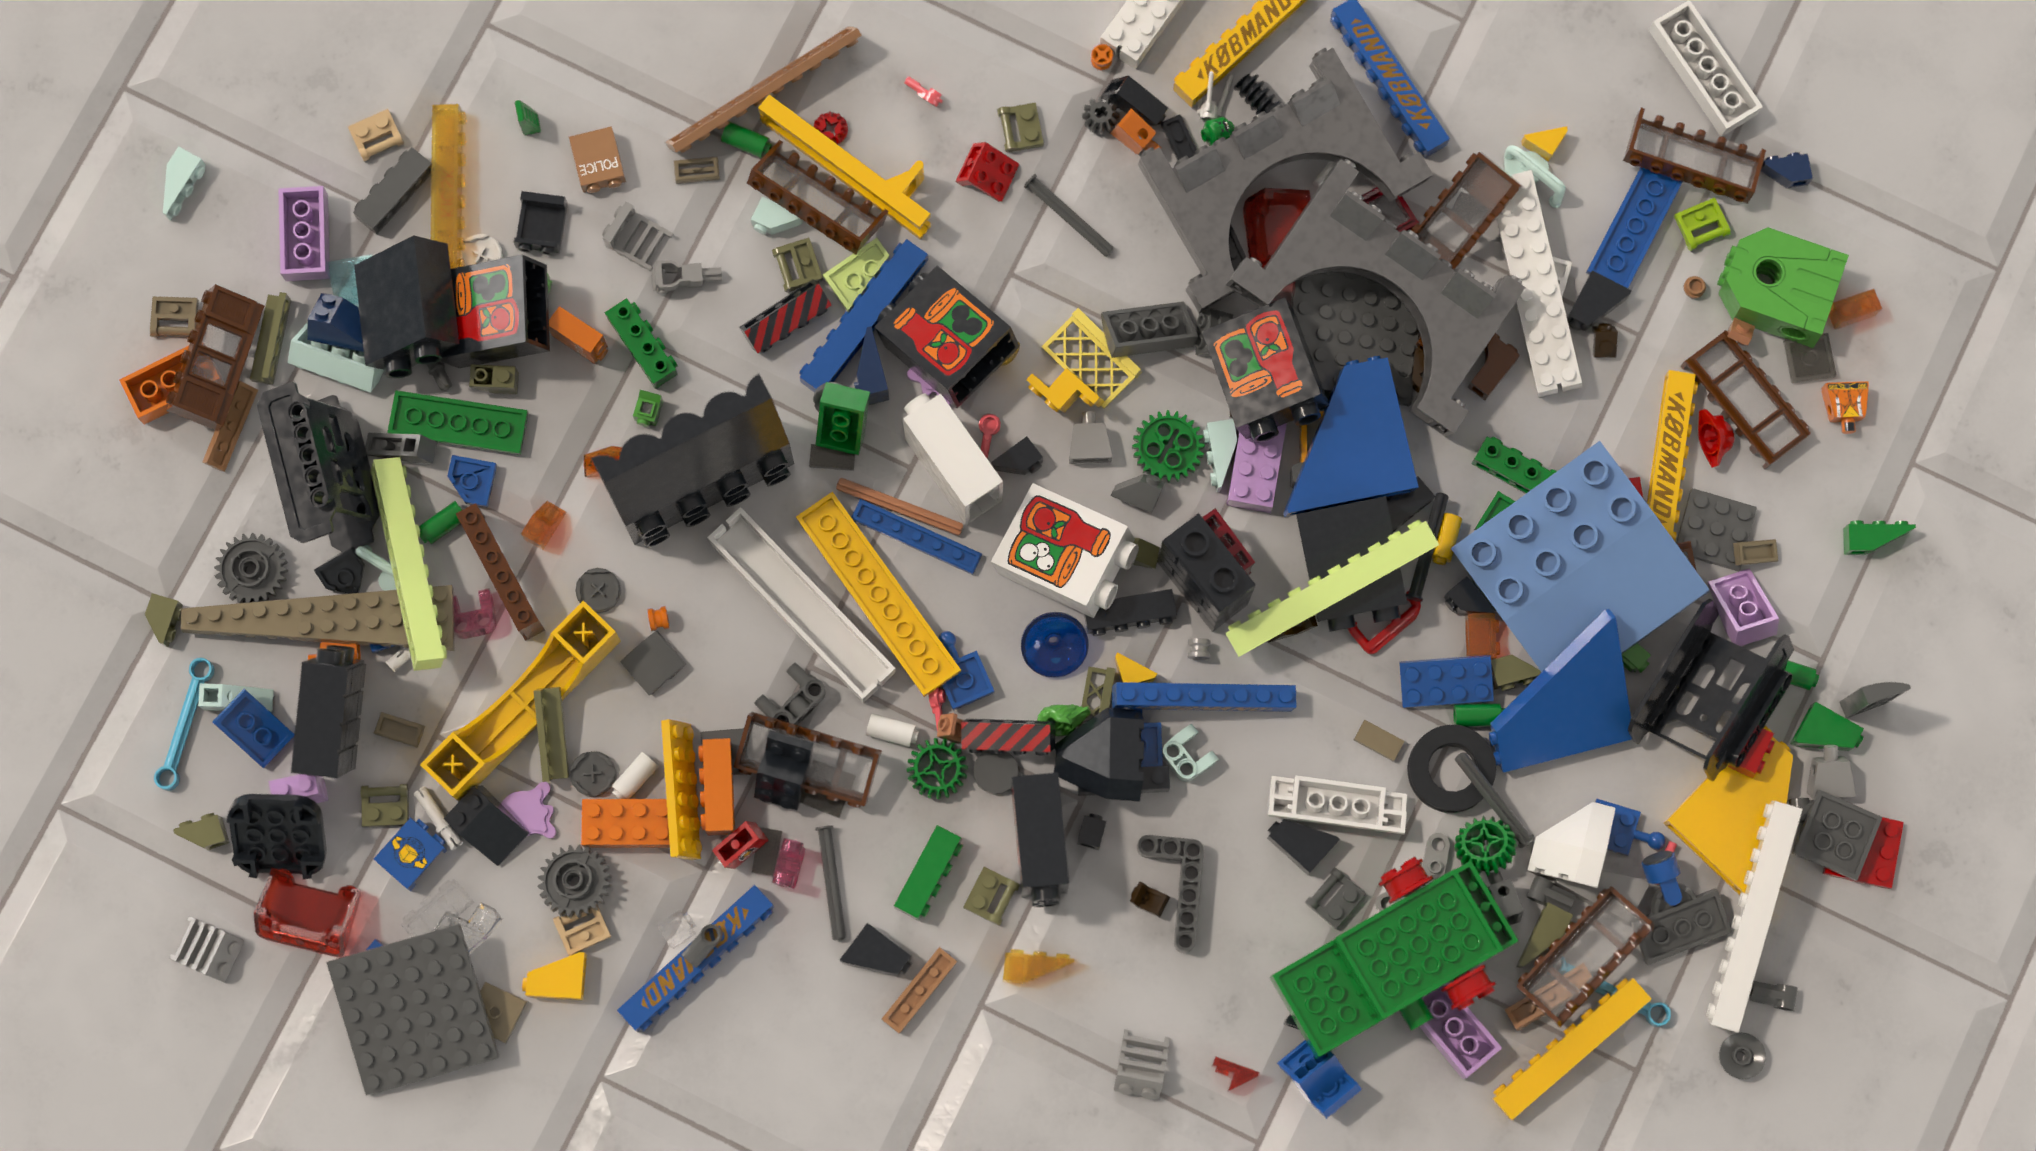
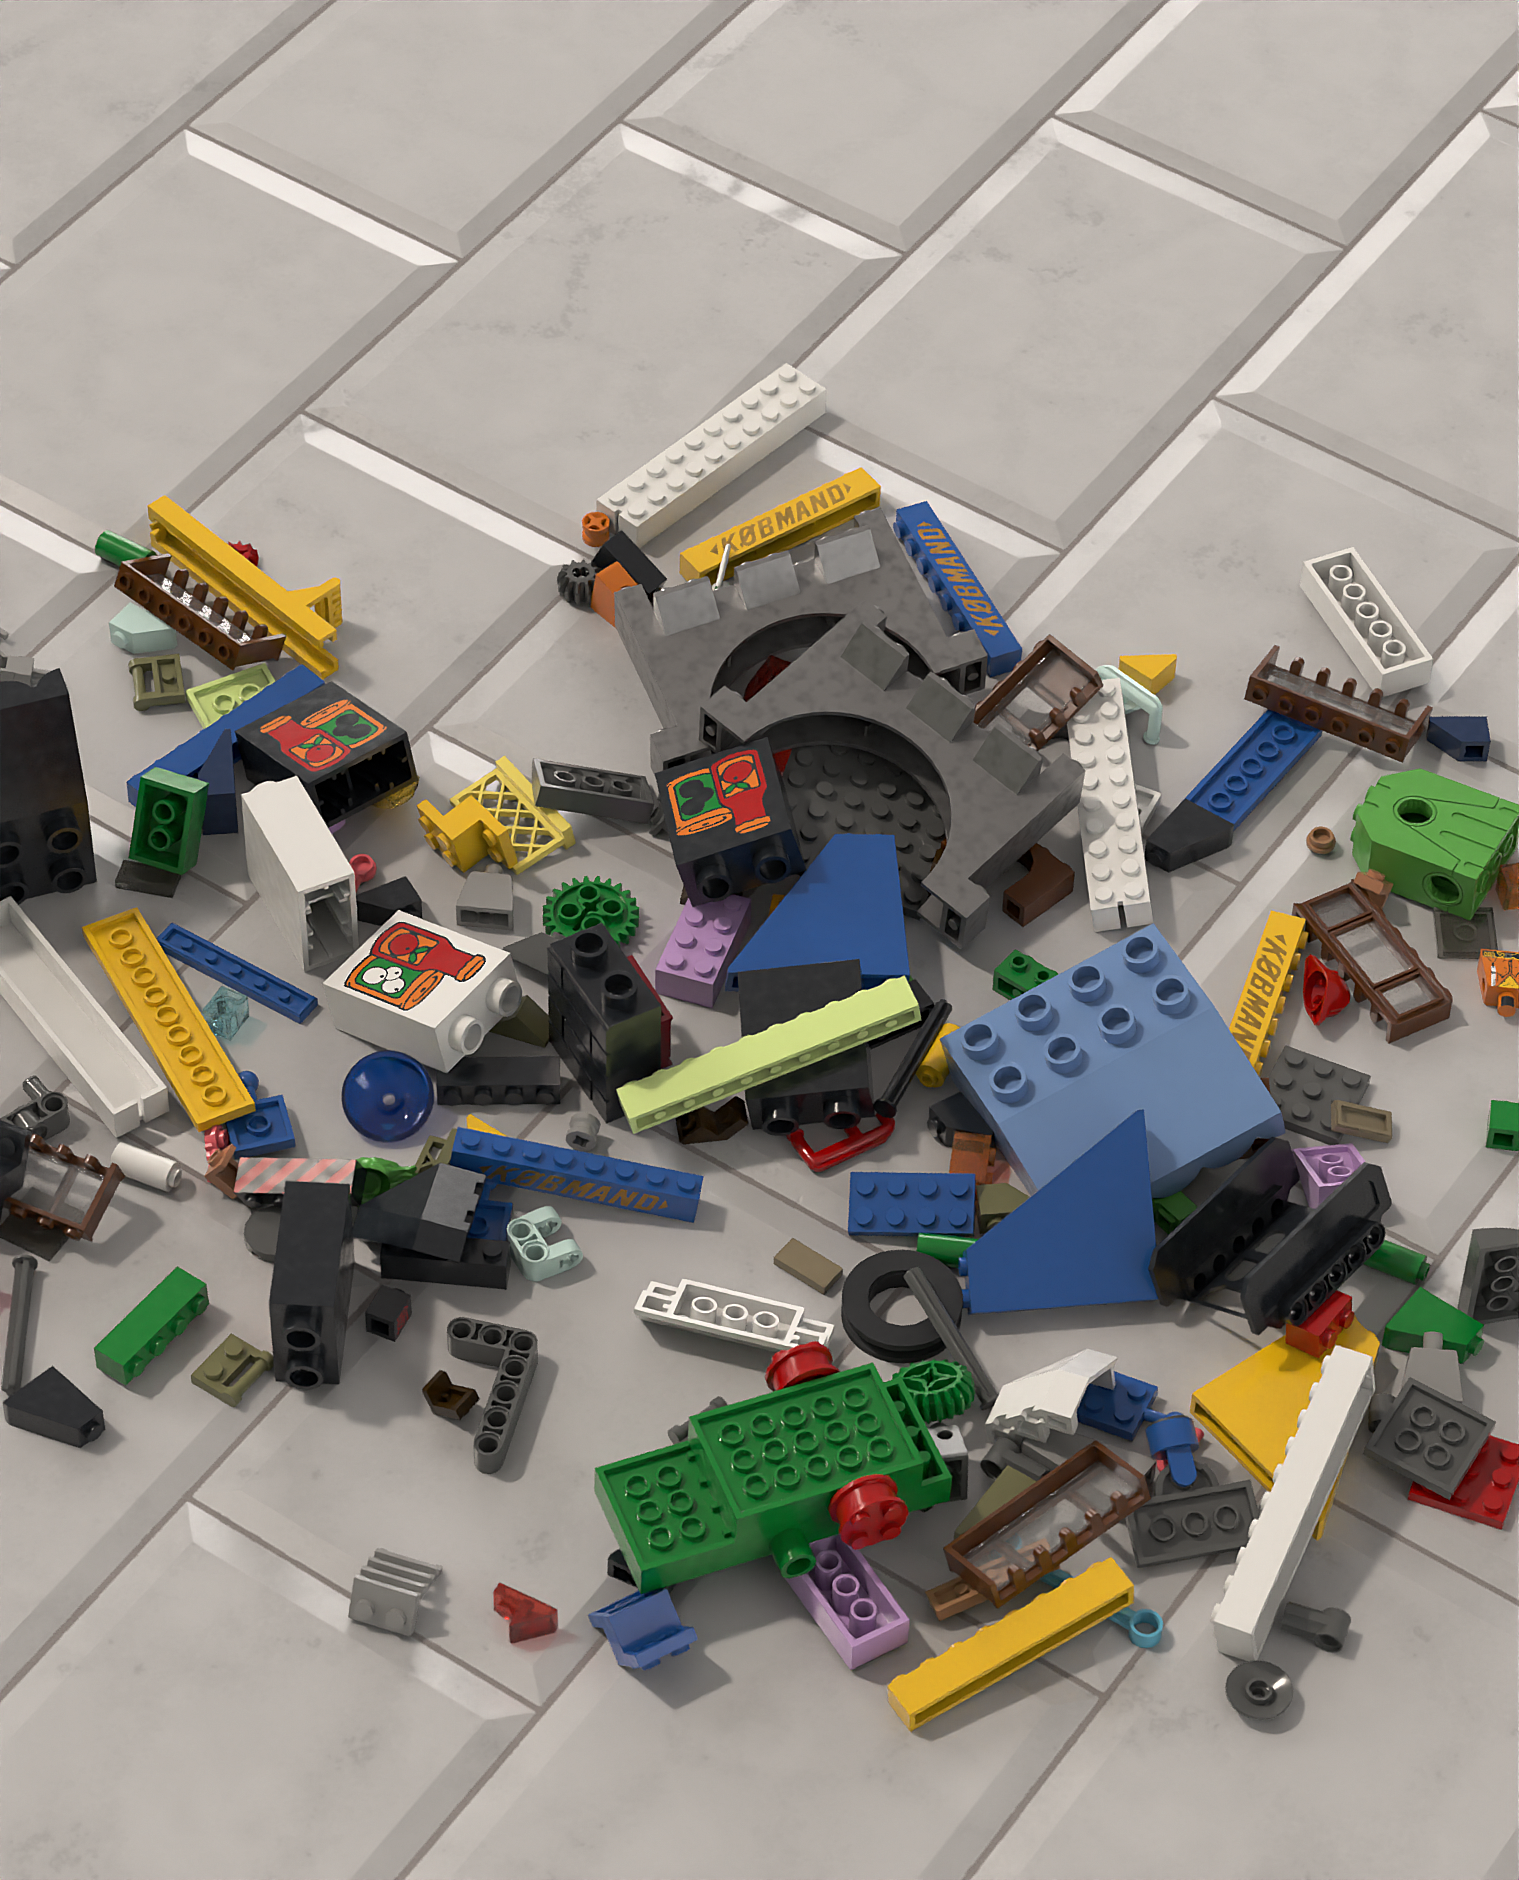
camera: 10 degrees right, 30 degrees down
(696, 178) = (60, 580): dark tan tile -> none
(757, 93) = (193, 493): medium nougat plate -> none
(785, 316) = (130, 723): black brick -> none
(899, 506) = (222, 938): nougat axle -> none
(919, 990) = (104, 1461): medium nougat plate -> none
(922, 571) = (226, 1012): none -> clear light blue brick
(931, 96) = (369, 540): coral plate -> none
(947, 764) = (177, 1222): green gear -> none
(988, 170) = (426, 618): red bracket -> none
(1026, 968) = (268, 1454): clear yellow slope -> none
(1027, 124) = (486, 585): olive plate -> none
(1069, 215) = (518, 676): dark grey axle -> none
(1222, 442) = (661, 916): light aqua slope -> none
(1301, 843) = (678, 1363): black slope -> none
(1605, 341) = (1192, 879): dark brown bracket -> none
(1699, 217) = (1337, 771): lime plate -> none

